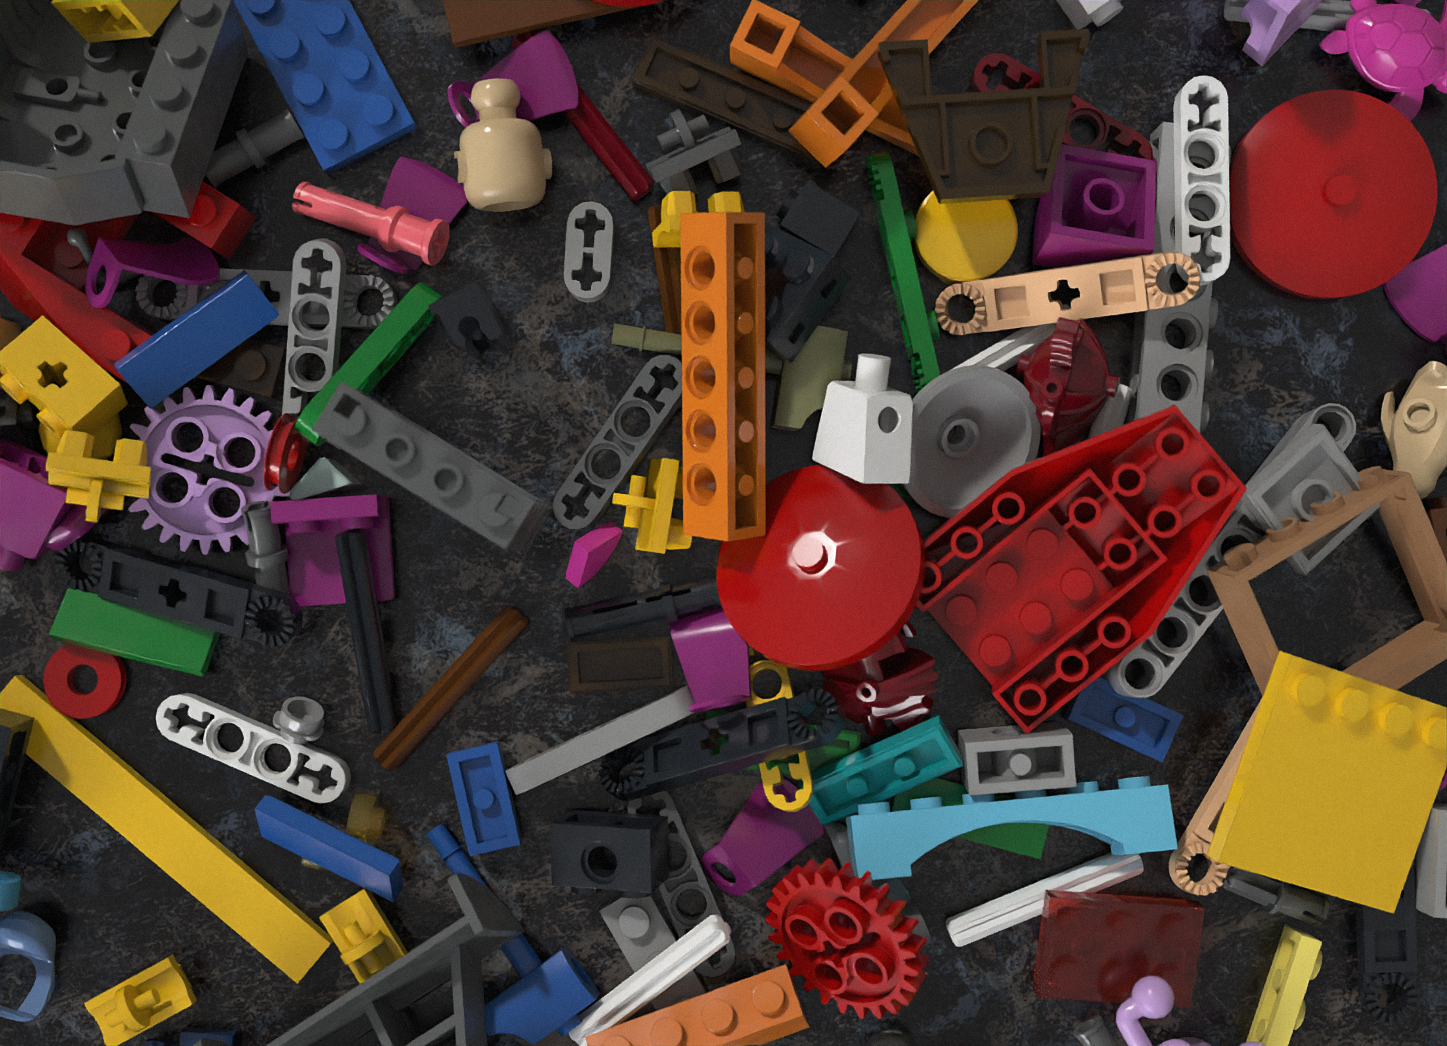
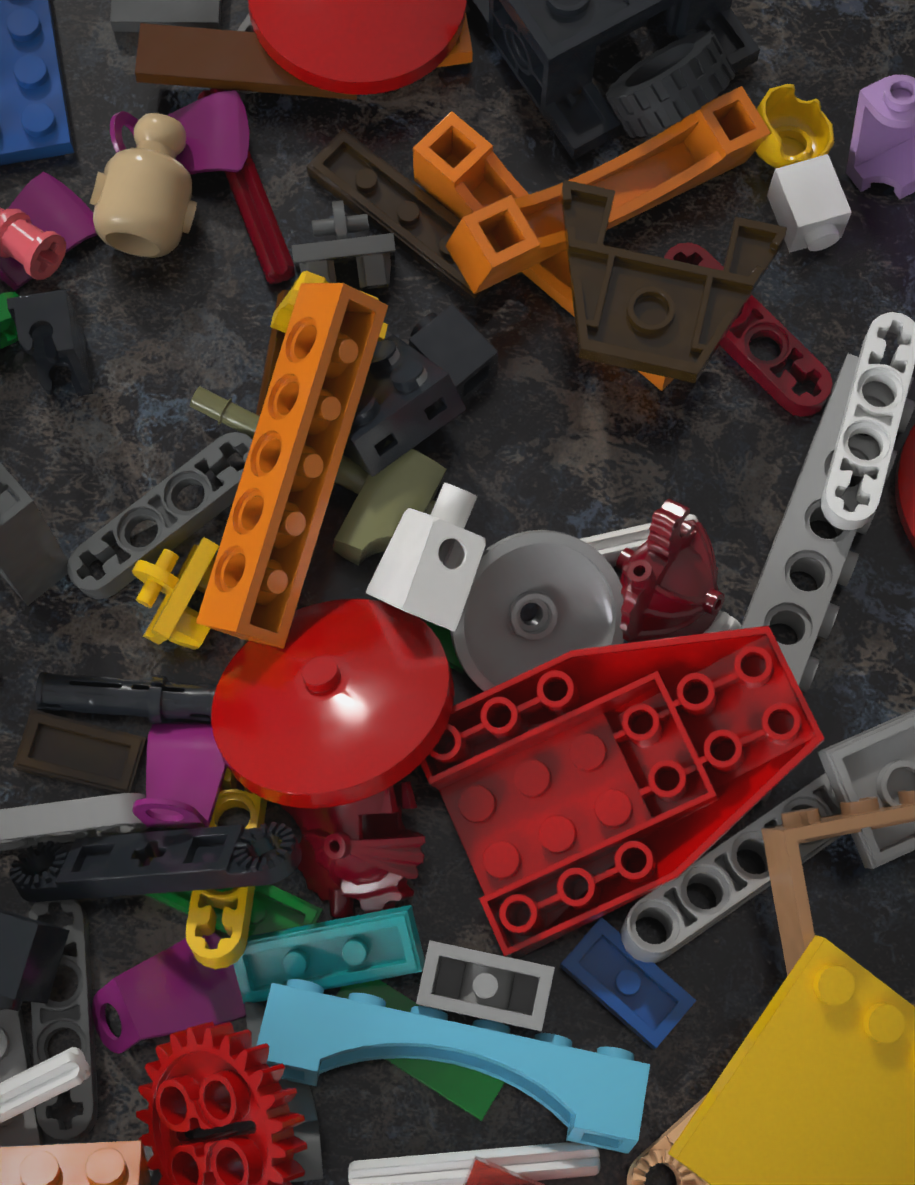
camera: 15 degrees right, 15 degrees down
(577, 251) = (192, 313): light grey beam -> none
(591, 553) = (93, 623): dark pink tile -> none
(896, 231) = (534, 387): green piece -> none
(965, 238) = (606, 413): yellow tile -> none
(1095, 209) = (750, 428): magenta slope -> none
(1104, 290) = (733, 501): light nougat piece -> none

